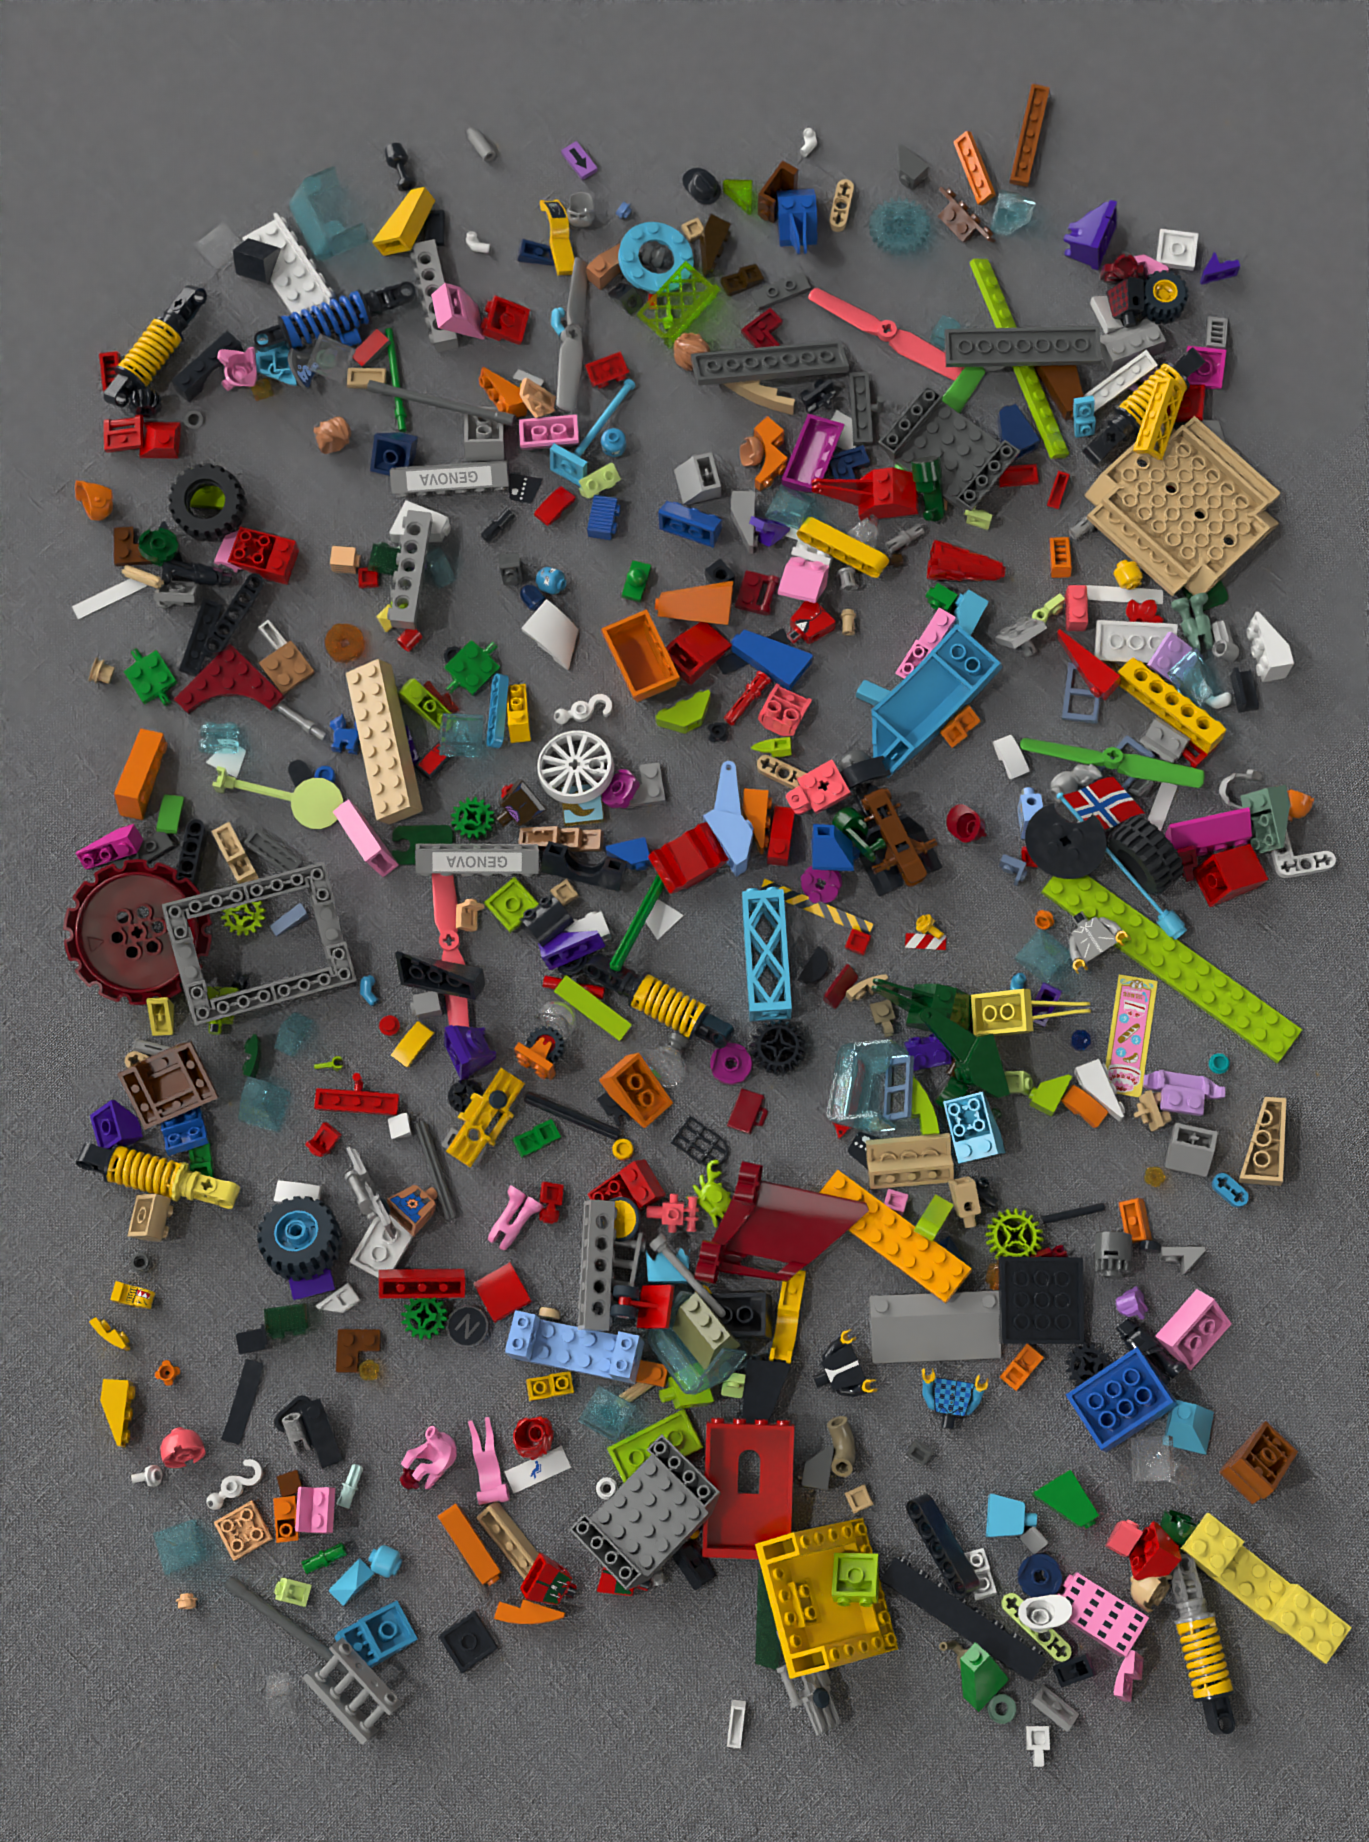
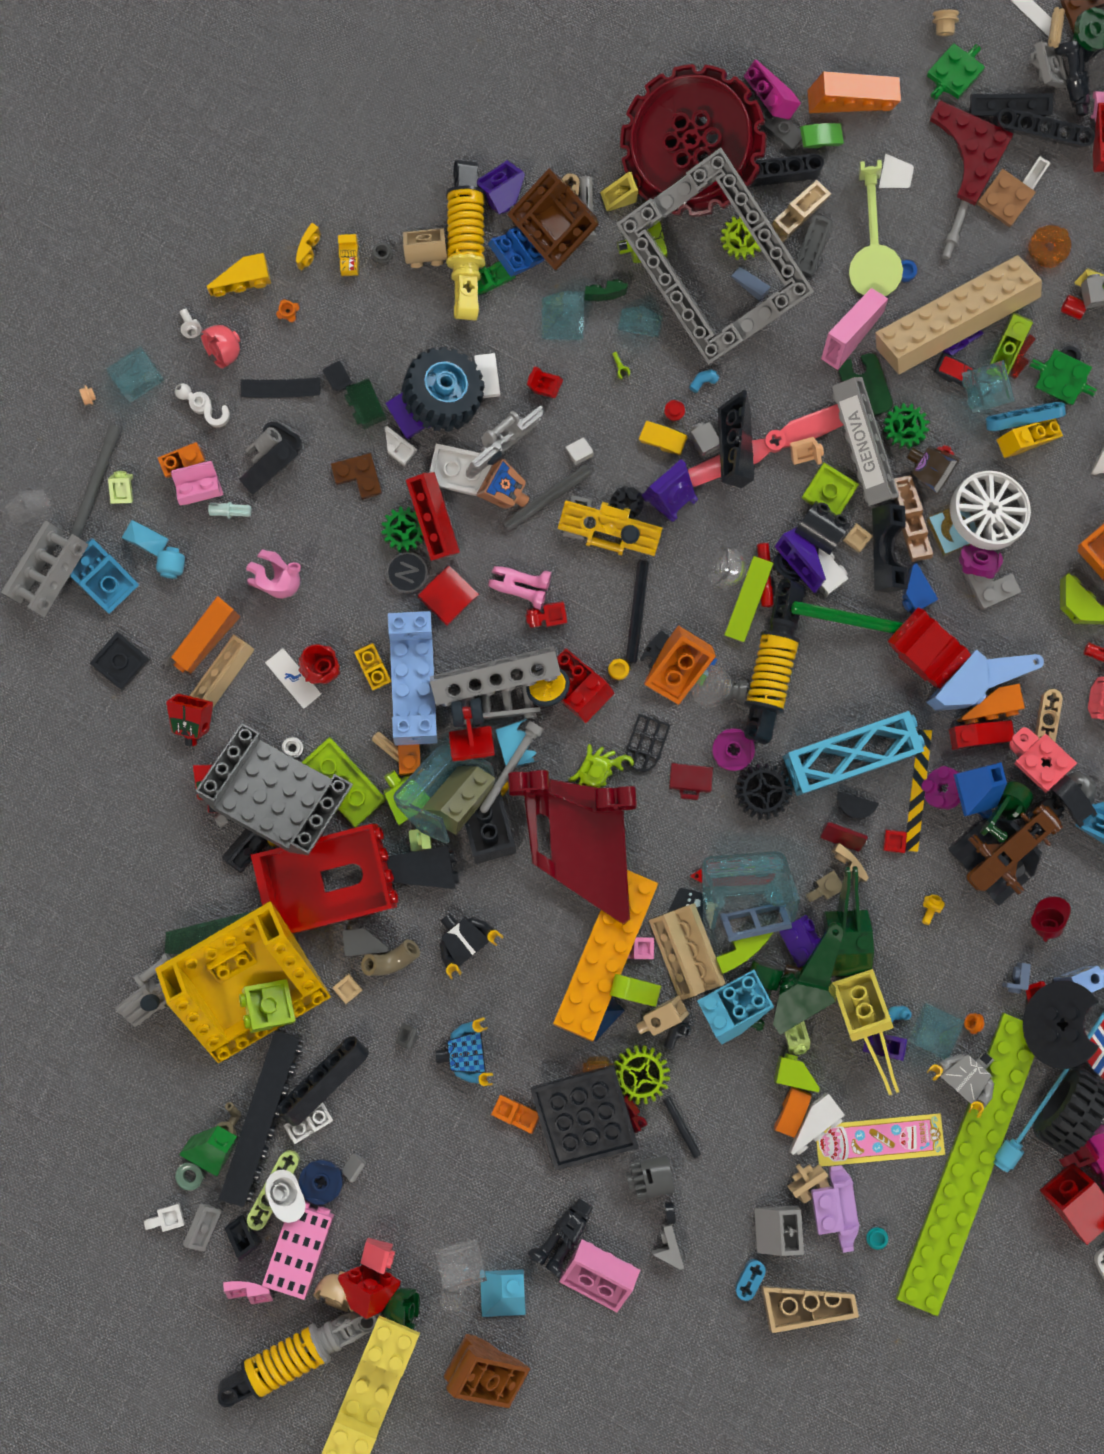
camera: 65 degrees right, 10 degrees up
(219, 738) = (918, 147): clear light blue brick -> none
(240, 981) = (676, 256): black bush -> none
(243, 1530) = (164, 426): light nougat tile -> none
(289, 1483) = (218, 454): reddish brown tile -> none
(299, 772) = (902, 244): black tile -> none
(324, 1558) = (158, 506): green pin -> none
(344, 736) = (952, 275): blue animal -> none
(357, 1100) = (592, 402): red plate -> none
(368, 1375) = (346, 494): clear yellow plate -> none
(408, 1480) = (247, 558): dark red plate -> none
(488, 1467) = (281, 632): bright pink flag -> none
(527, 1614) = (156, 707): orange slope -> none
(537, 1138) = (605, 584): green slope -> none
(542, 1050) = (692, 563): plate -> none
(549, 1313) = (440, 645): tan tile -> none
(582, 710) = (1051, 500): white piece -> none
(607, 1414) = (358, 727): clear light blue slope -> none
(662, 918) = (861, 641): white sticker -> none
(673, 1213) = (570, 735): coral piece -> none
(721, 727) = (1077, 641): black plate -> none
(736, 1724) = (111, 929): white piece -> none
(777, 747) = (1073, 703): lime plate -> none
(788, 1318) = (498, 874): yellow piece -> none
(924, 941) = (915, 908): sticker -> none
(929, 1330) = (525, 1015): light grey slope -> none
(1007, 1517) = (367, 1136): medium azure torso -> none
(1068, 1500) = (400, 1191): green slope -> none
(1080, 1040) = (859, 1091): clear blue tile -> none
(1082, 1359) = (540, 1186): black gear -> none
(1121, 1400) = (508, 1221): blue slope -> none
(1132, 1303) = (607, 1208): medium lavender piece -> none
(1135, 1219) = (693, 1191): orange slope -> none
(1160, 1177) = (748, 1200): clear yellow plate -> none

